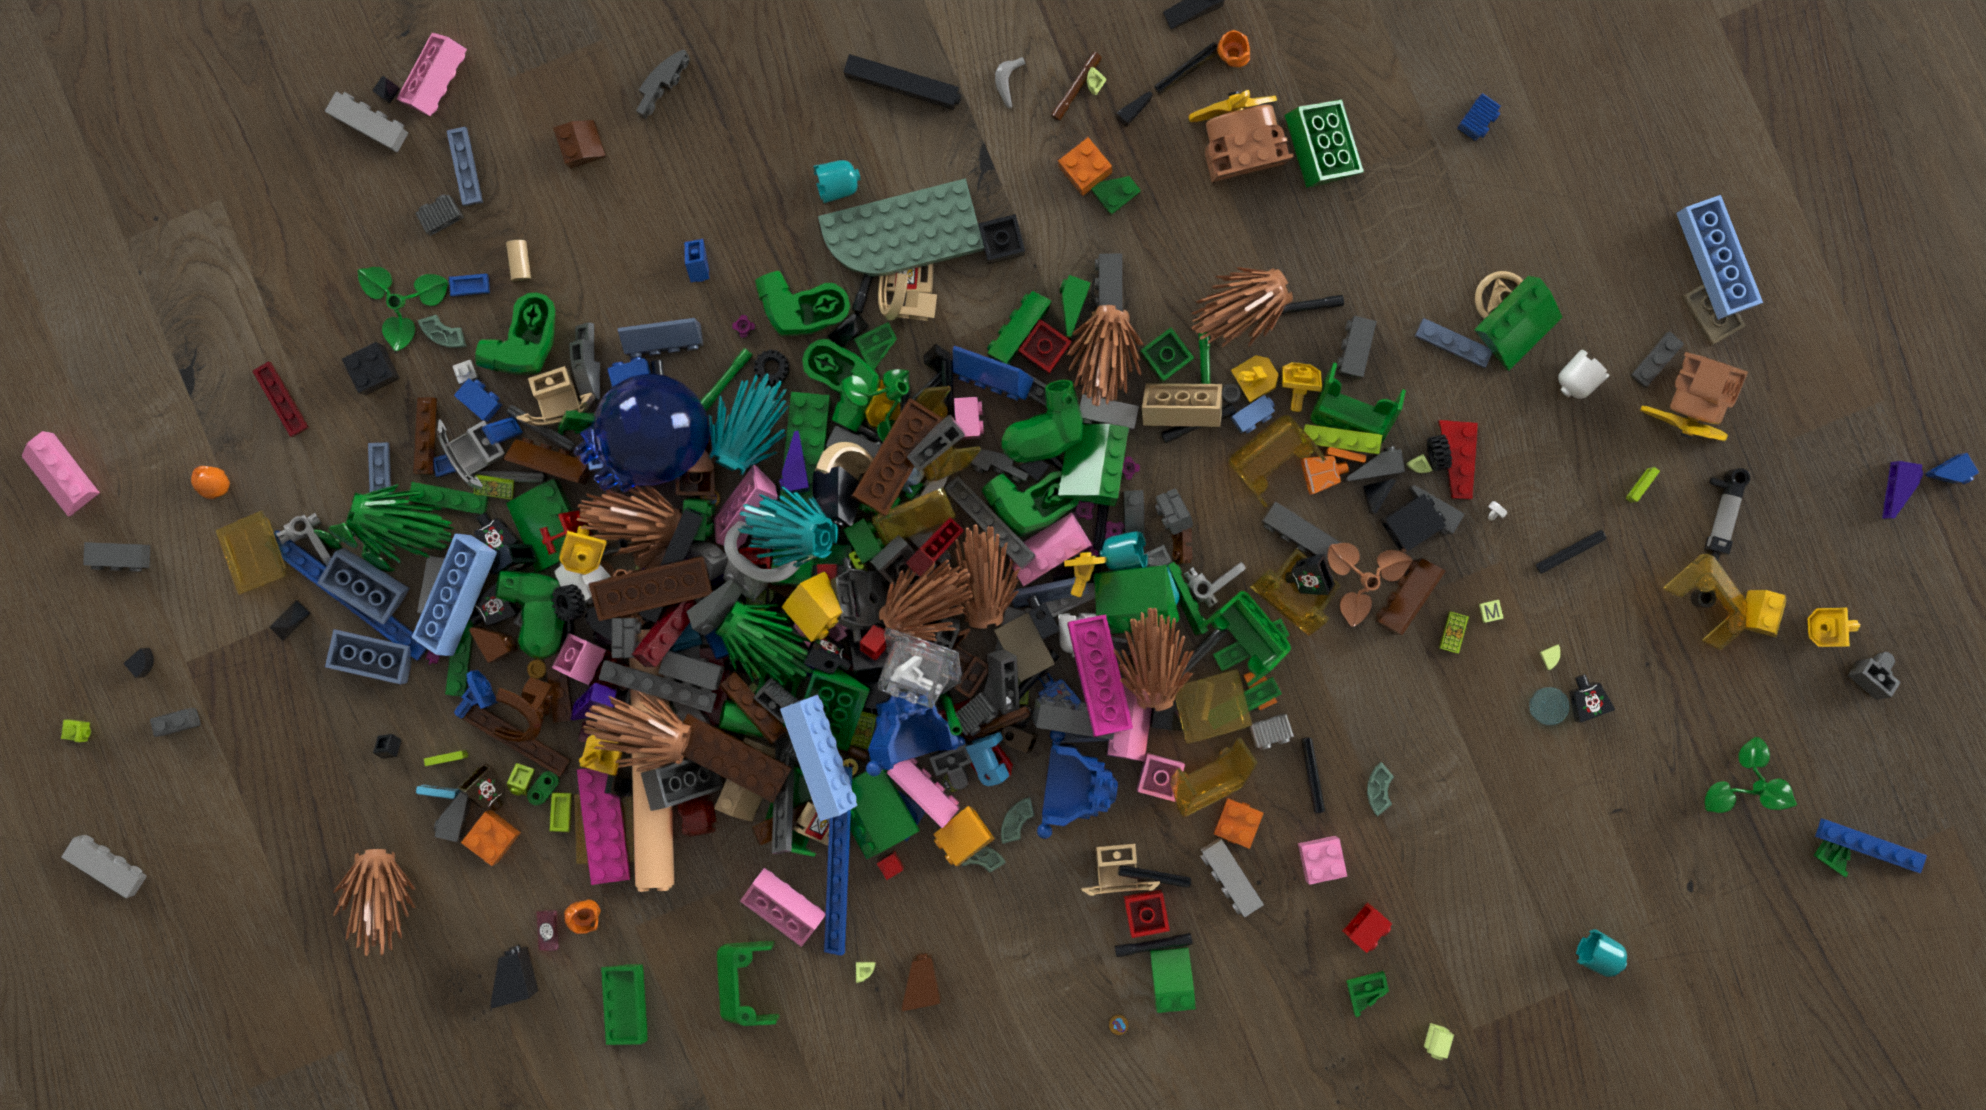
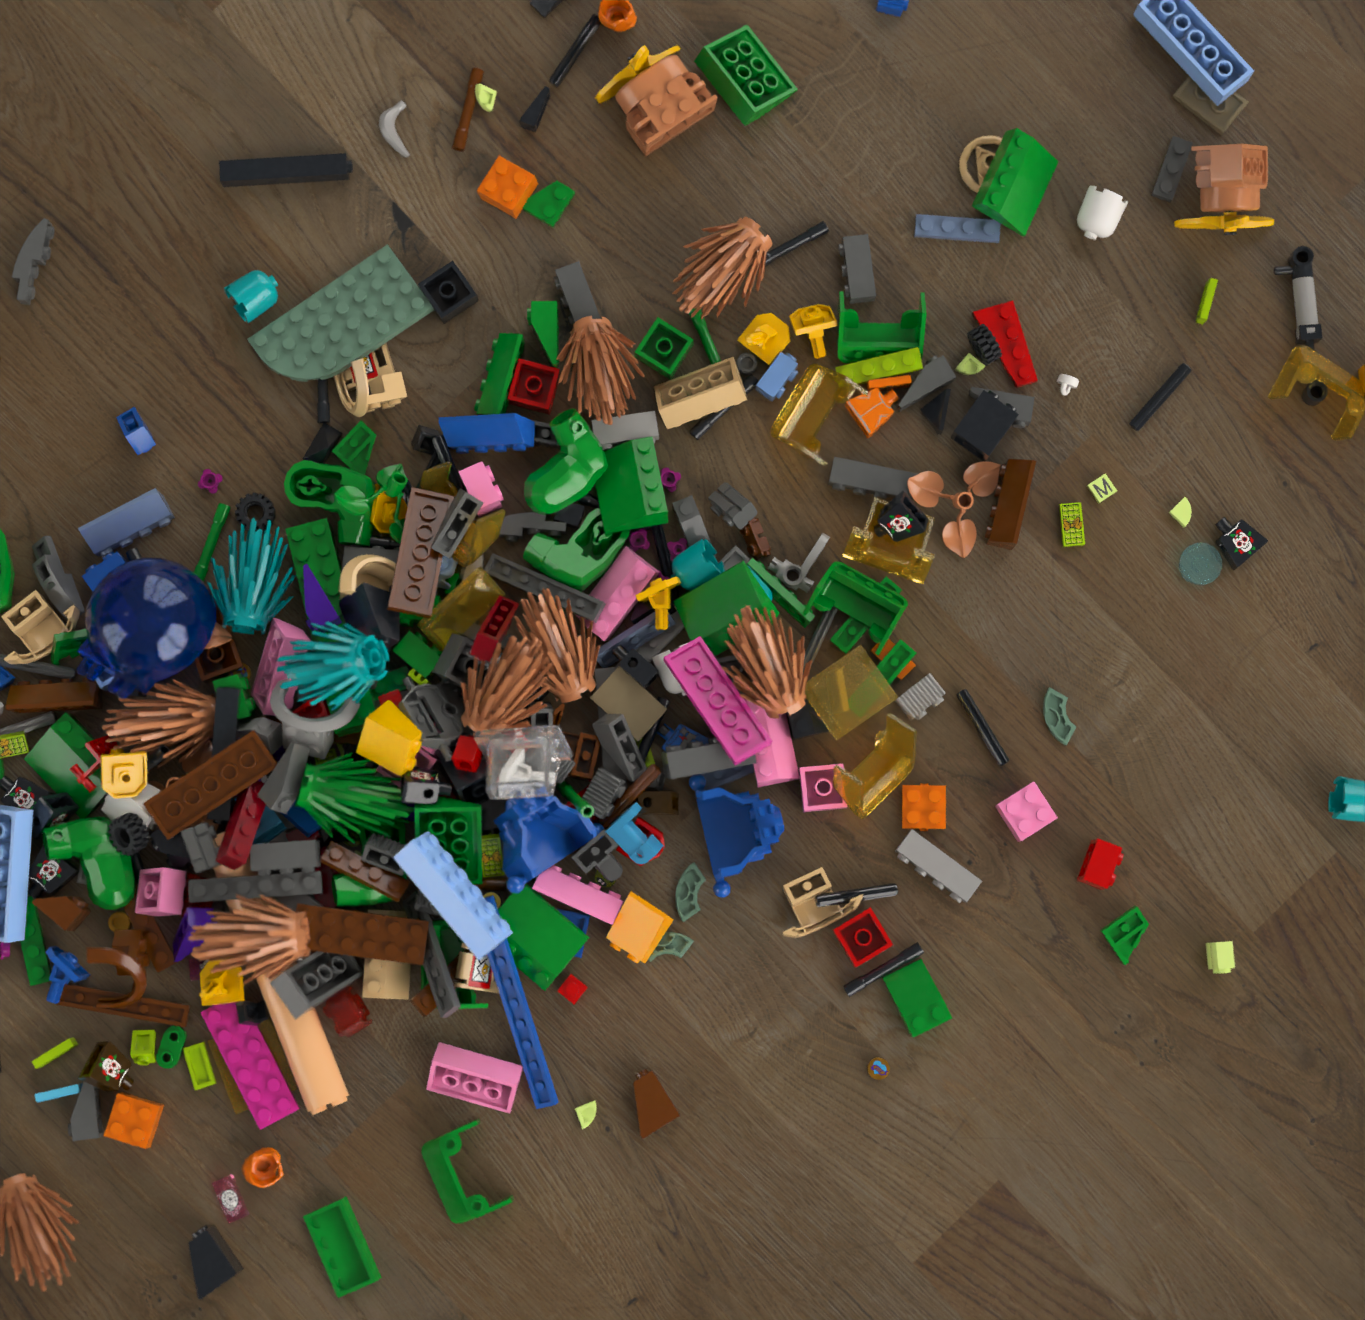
camera: 30 degrees left, 5 degrees down
(803, 311) = (267, 442): green piece -> none

